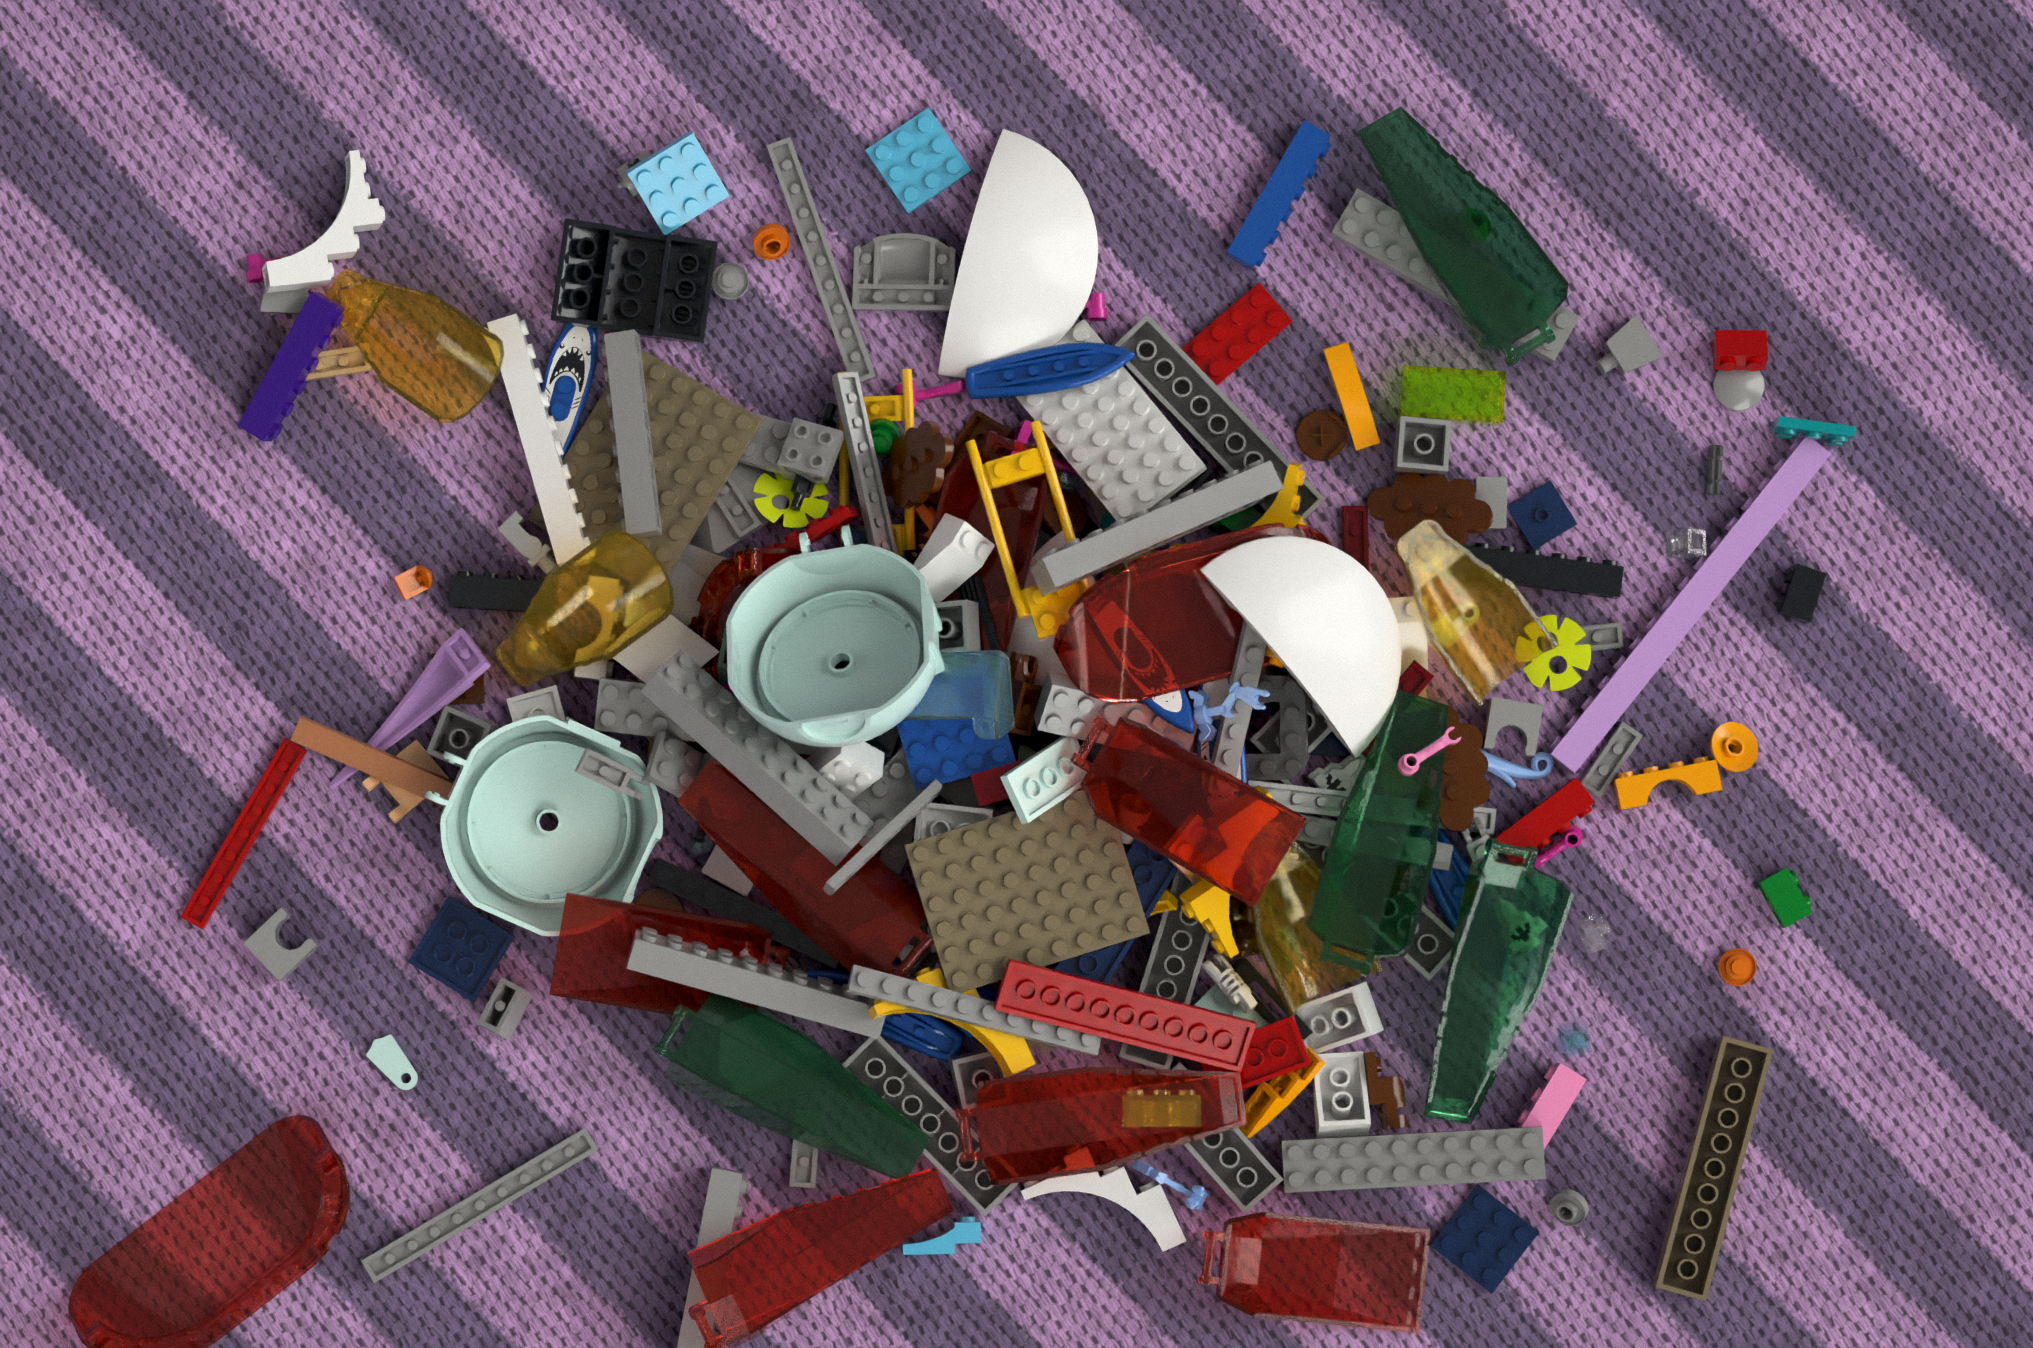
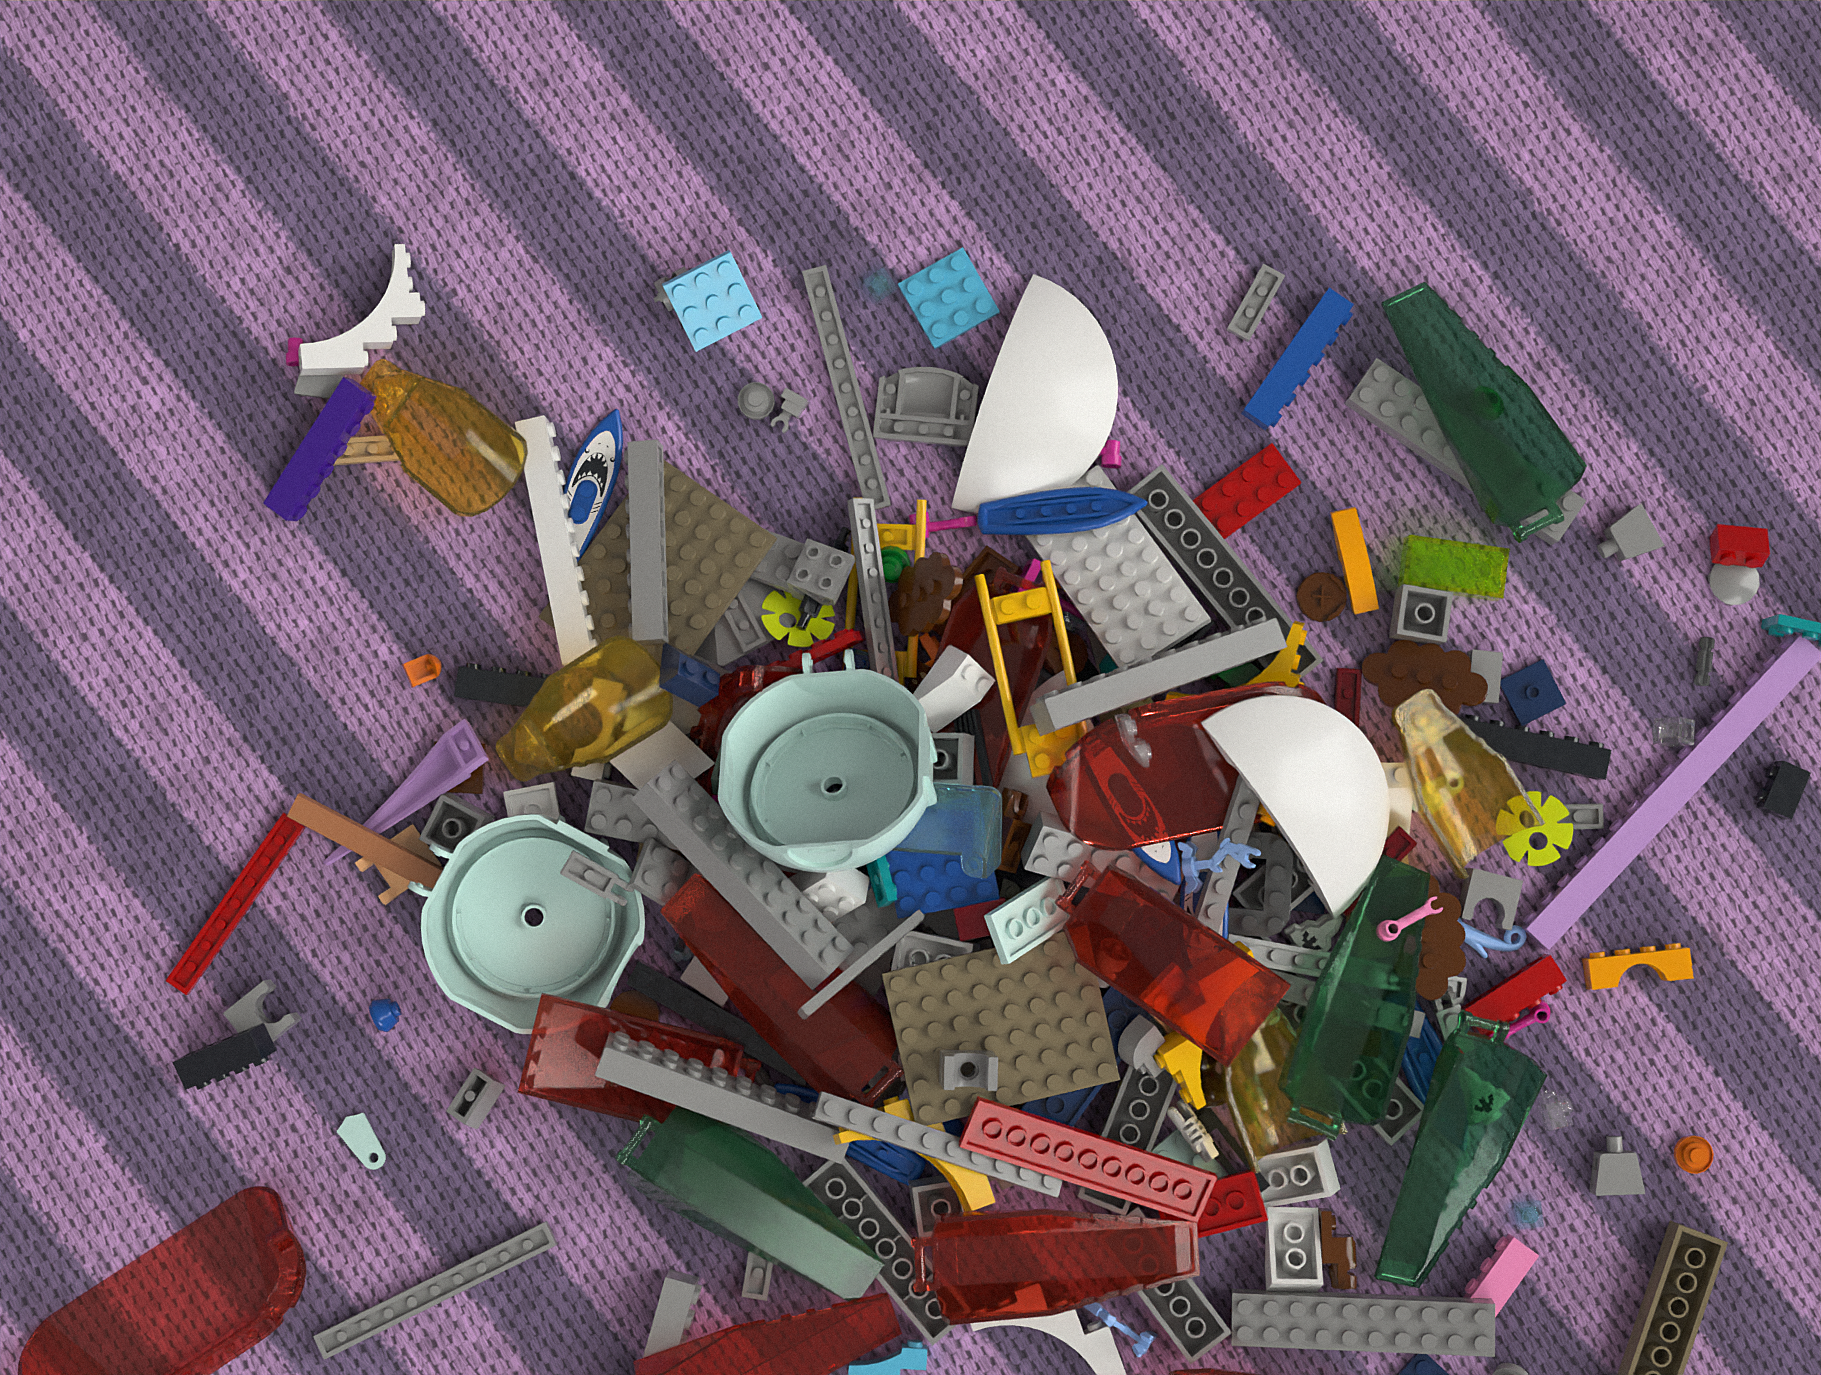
camera: 10 degrees right, 0 degrees up
(248, 986) = (225, 1056): none -> black brick
(405, 932) = (384, 1014): none -> blue cone
(461, 949) = (438, 1035): dark blue plate -> none
(529, 546) = (537, 644): light grey hips -> none
(633, 281) = (661, 393): black slope -> none
(685, 566) = (687, 676): none -> dark blue slope
(768, 283) = (793, 405): none -> light grey piece
(771, 241) = (798, 365): orange plate -> none
(847, 152) = (880, 285): none -> clear light blue plate
(896, 754) = (881, 881): none -> teal plate
(1012, 936) = (983, 1074): none -> light grey piece
(1137, 598) = (1136, 746): none -> clear slope
(1161, 1109) = (1117, 1255): clear yellow brick -> none
(1165, 895) = (1138, 1044): none -> light grey brick
(1231, 140) = (1255, 302): none -> light grey plate
(1277, 1094) = (1229, 1245): light orange slope -> none
(1610, 759) = (1582, 937): light grey tile -> none
(1659, 989) = (1616, 1170): none -> light grey torso
(1742, 743) = (1706, 936): light orange dish -> none
(1785, 897) = (1746, 1089): green brick -> none

